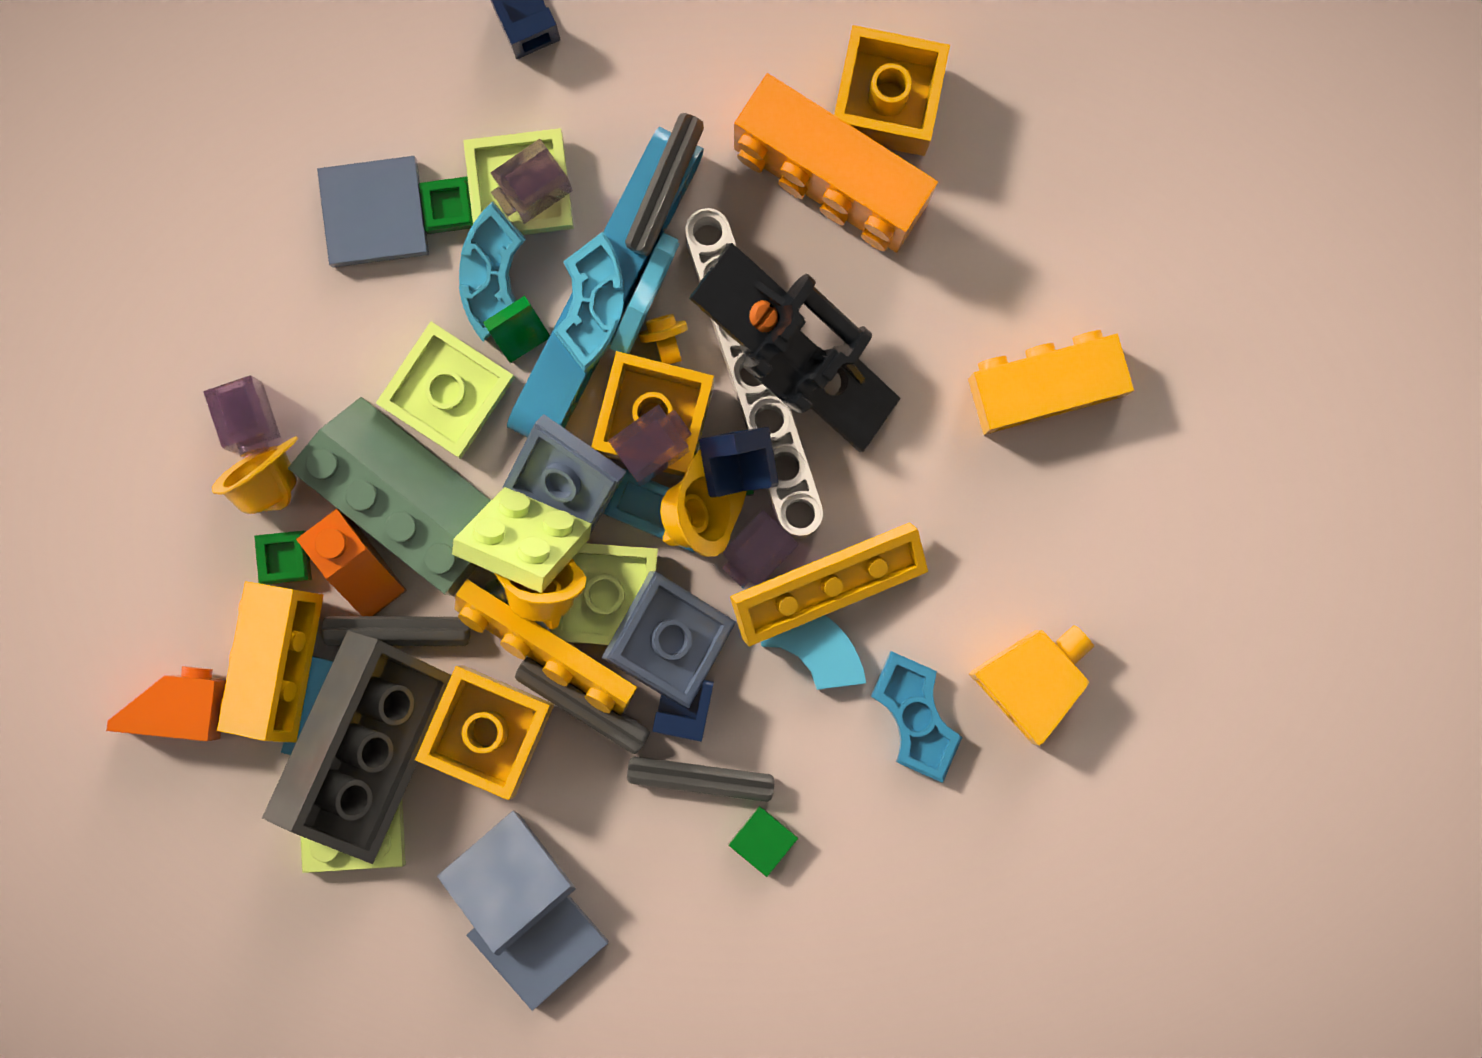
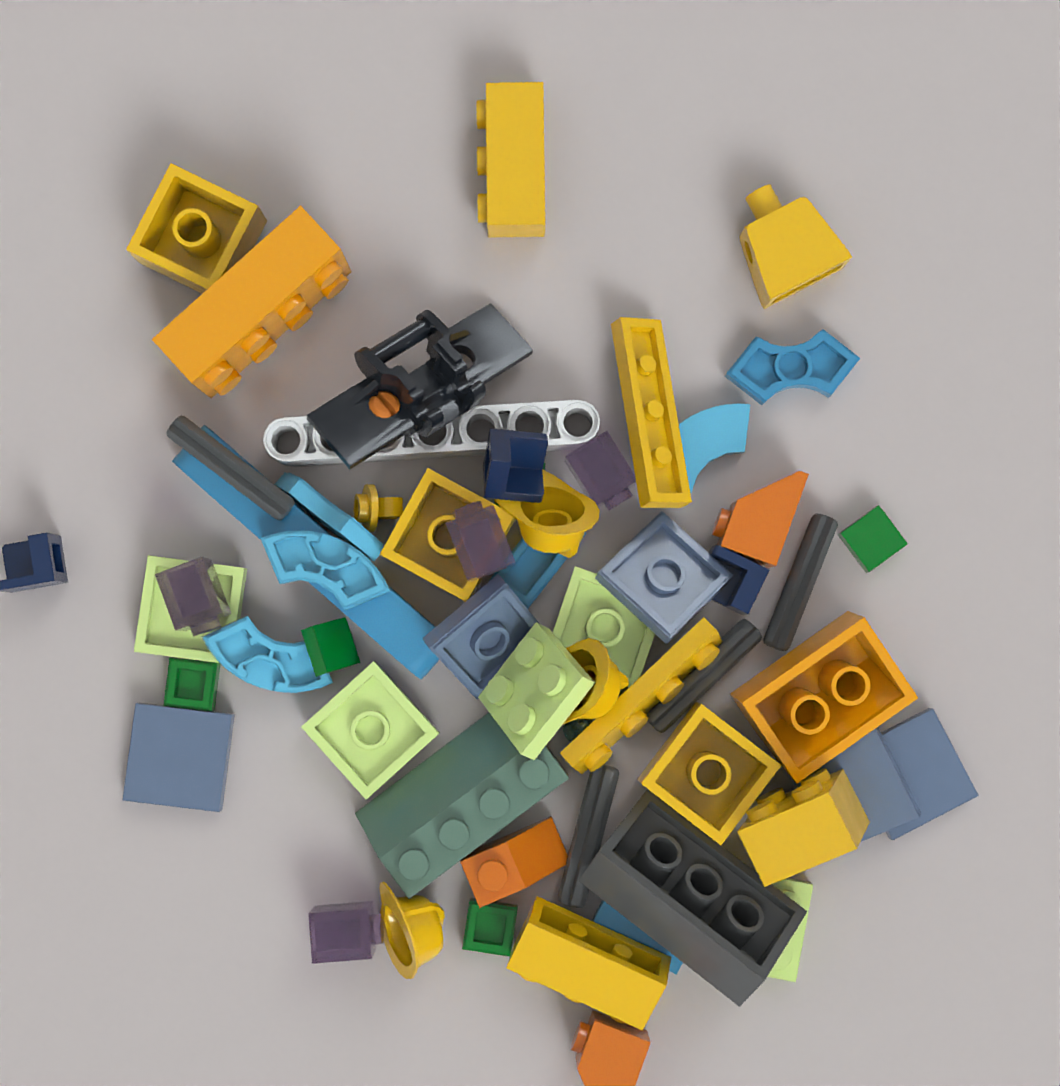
camera: 70 degrees left, 0 degrees up
(454, 837) = (803, 826): none -> yellow brick
(590, 828) = (824, 695): none -> light orange slope
(750, 721) = (760, 521): none -> orange slope

